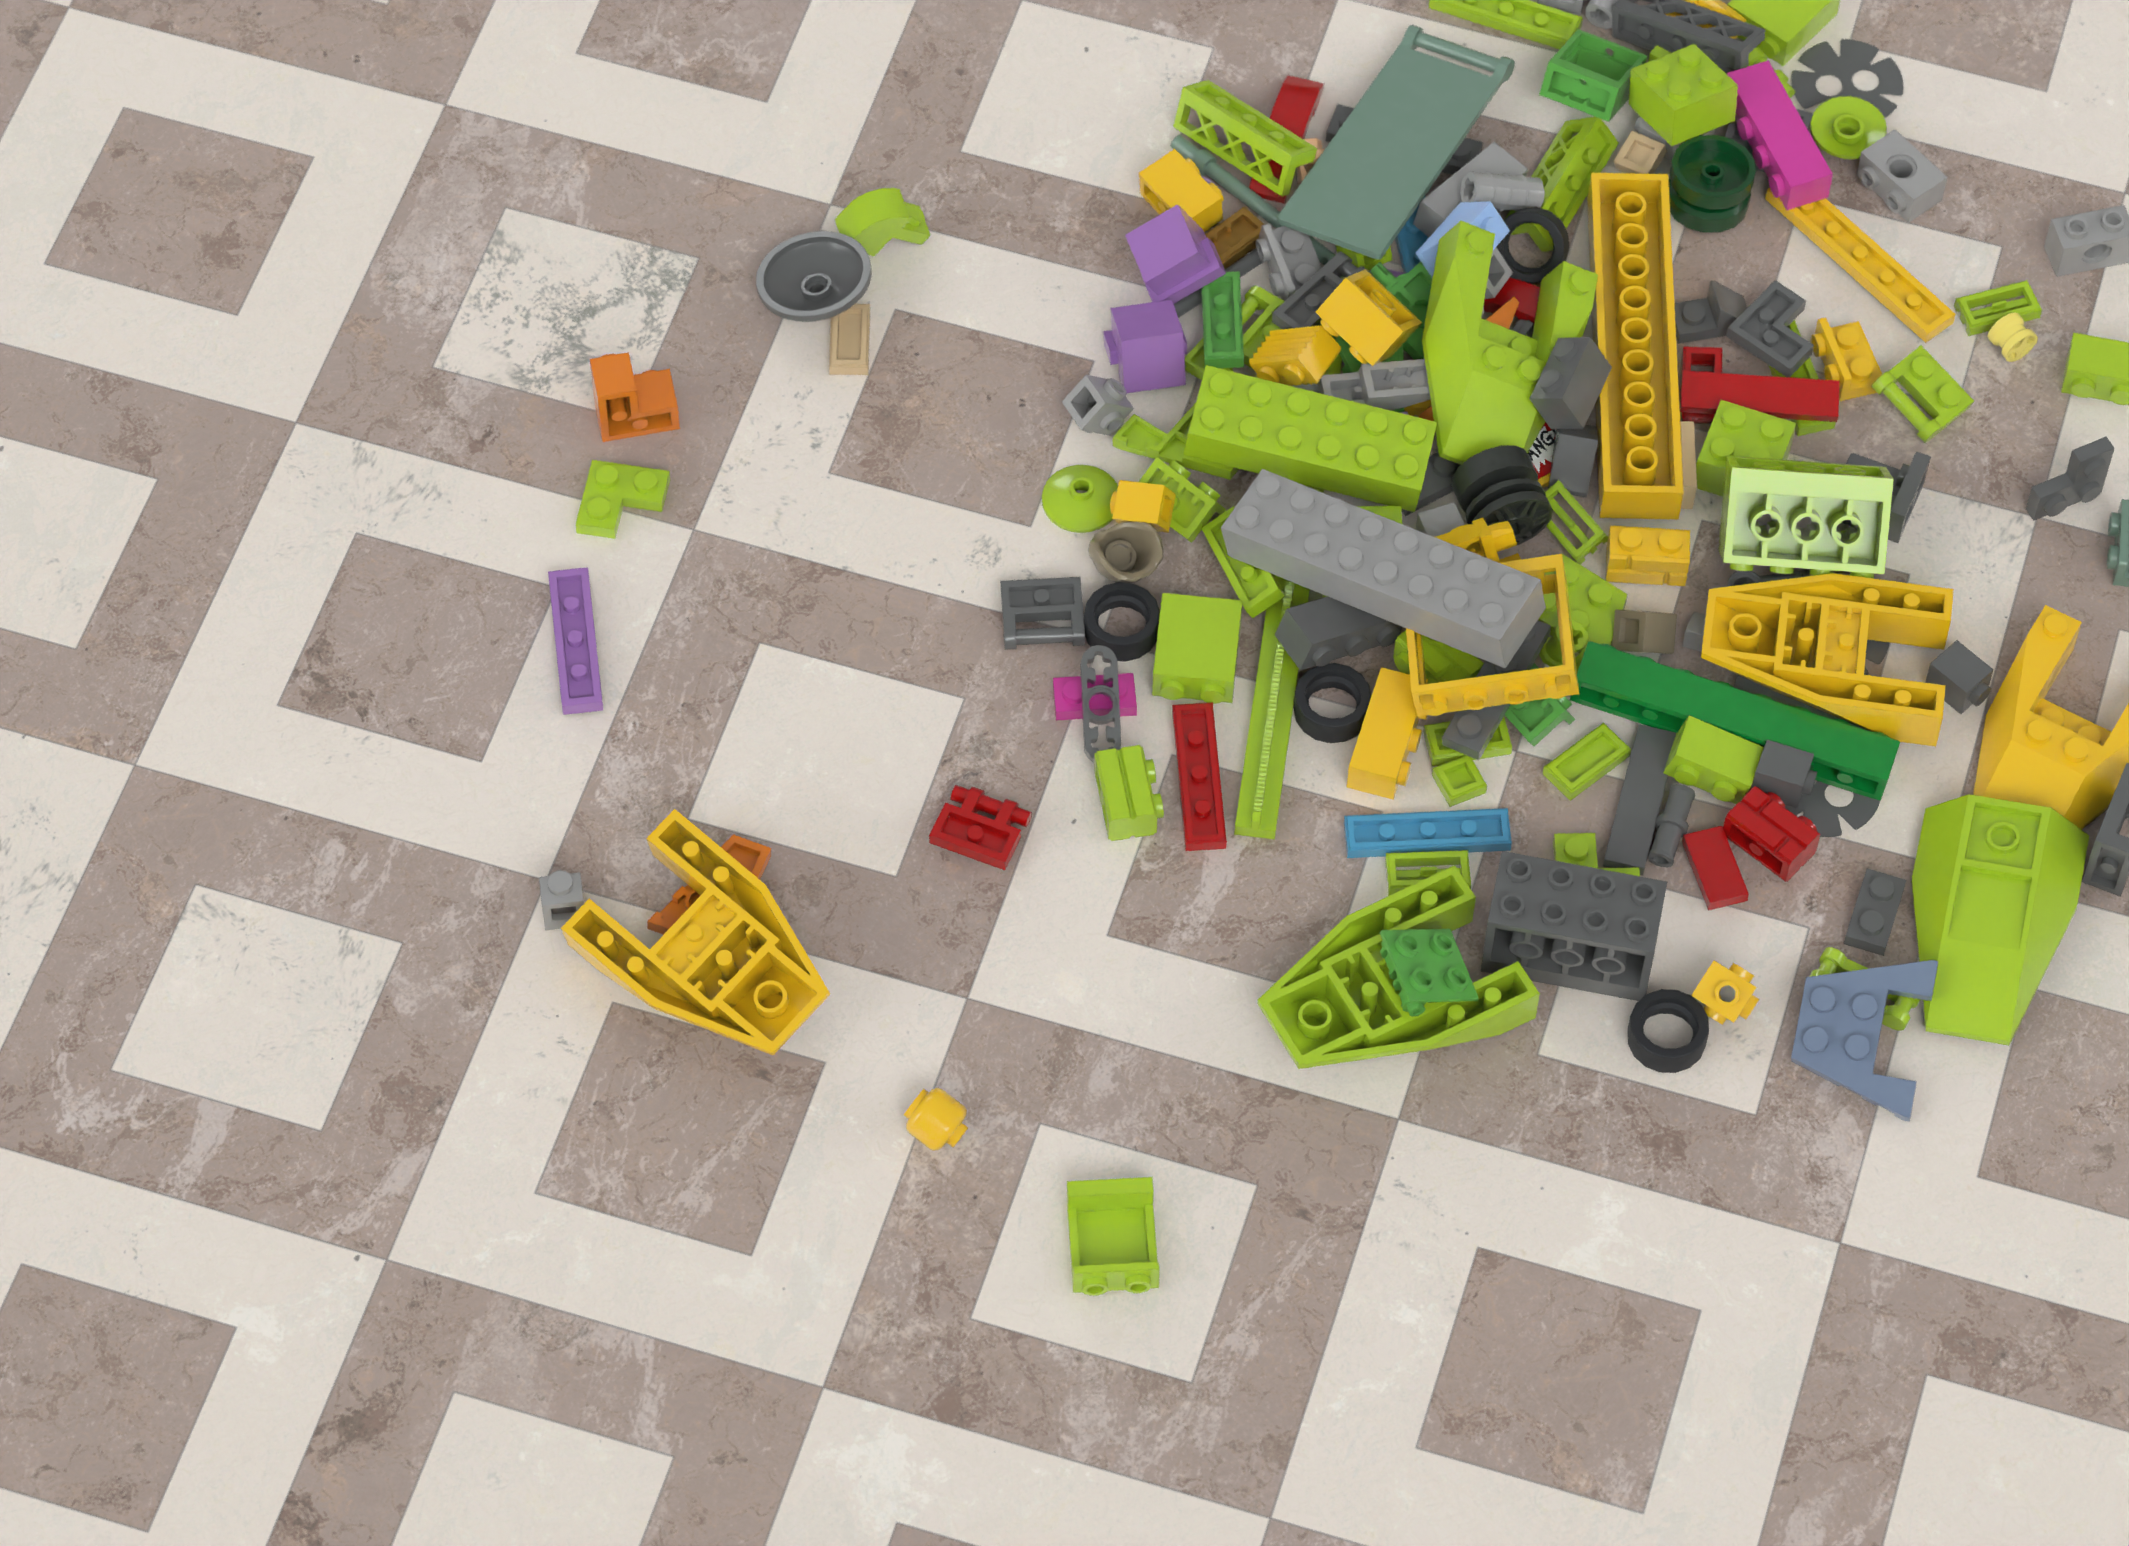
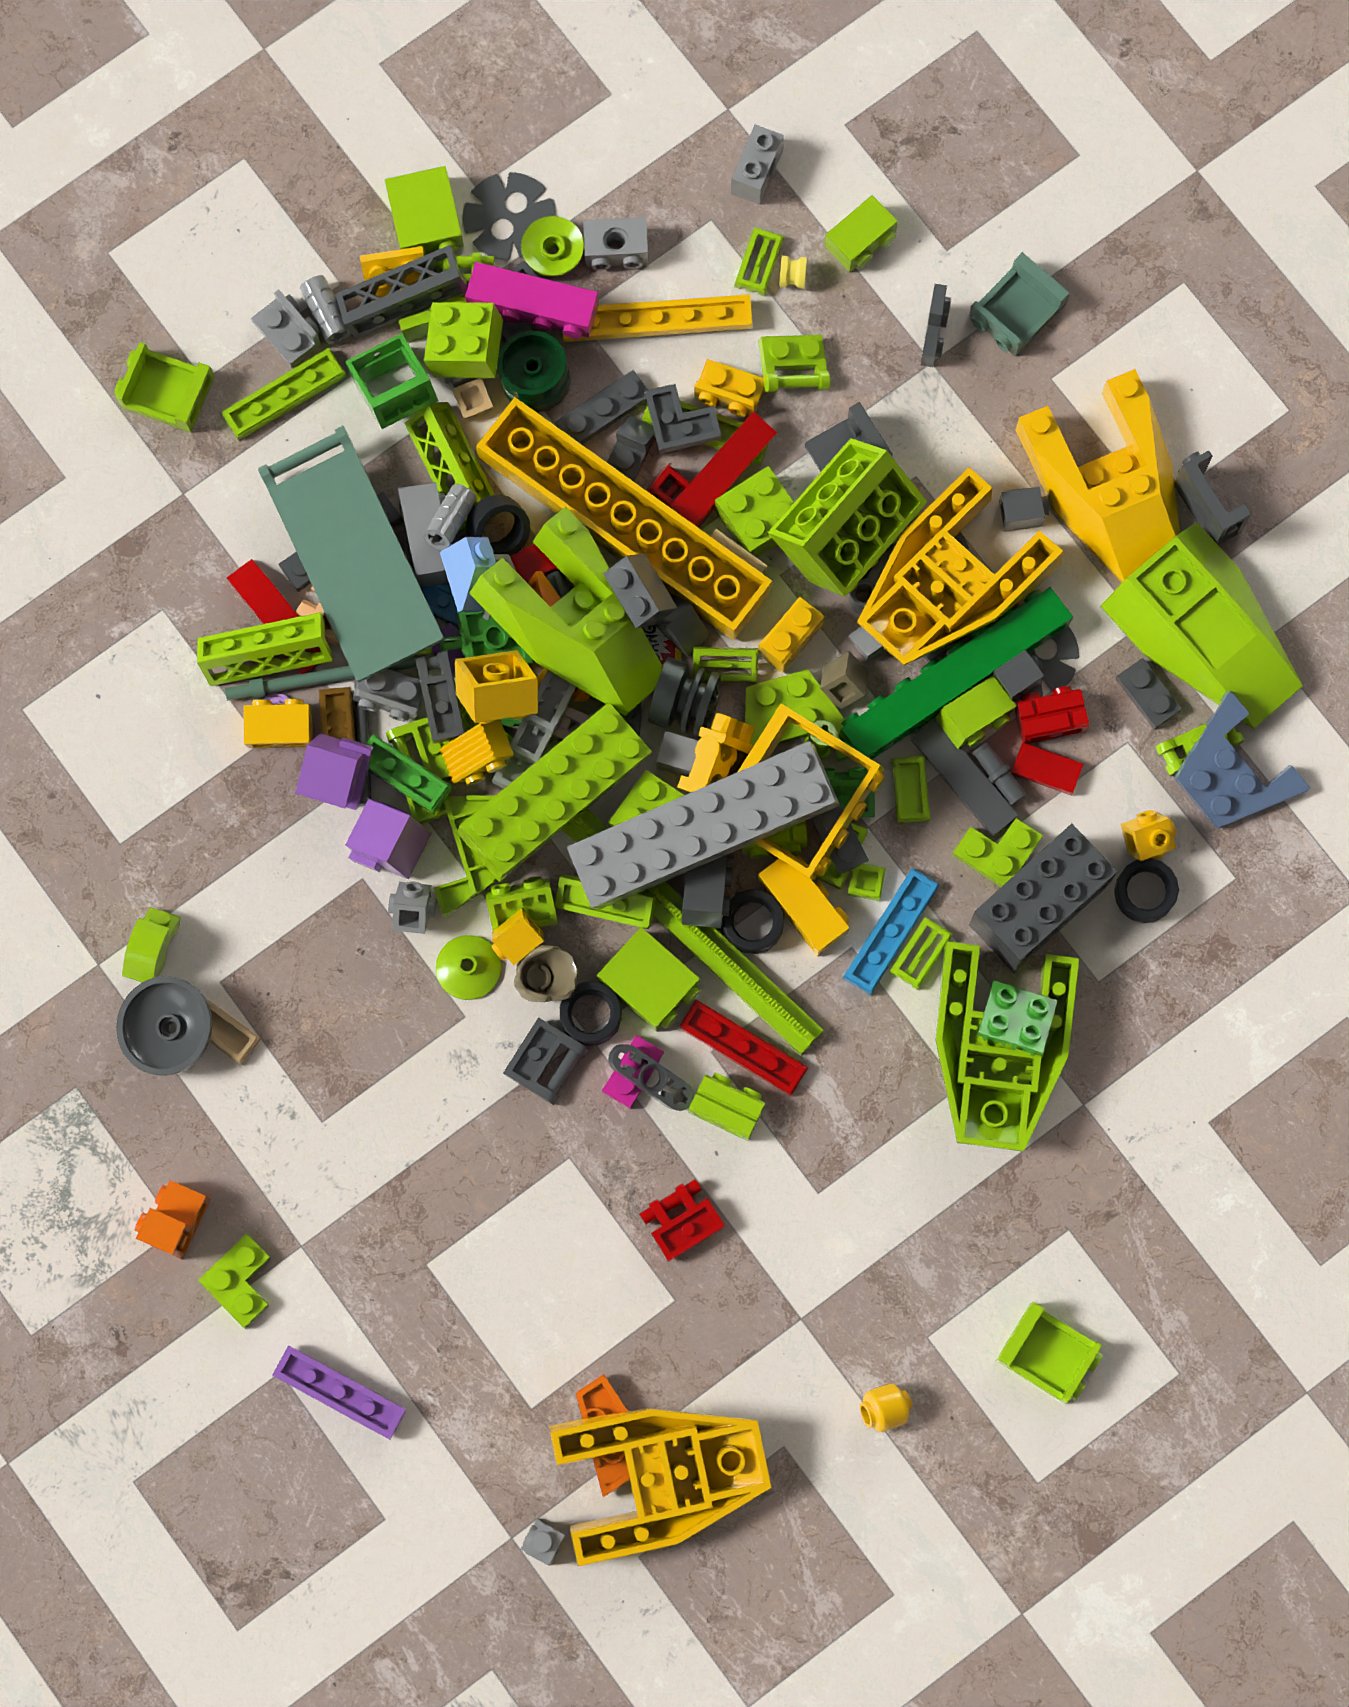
camera: 50 degrees left, 20 degrees up
(1736, 271) = (604, 408): none -> dark grey plate

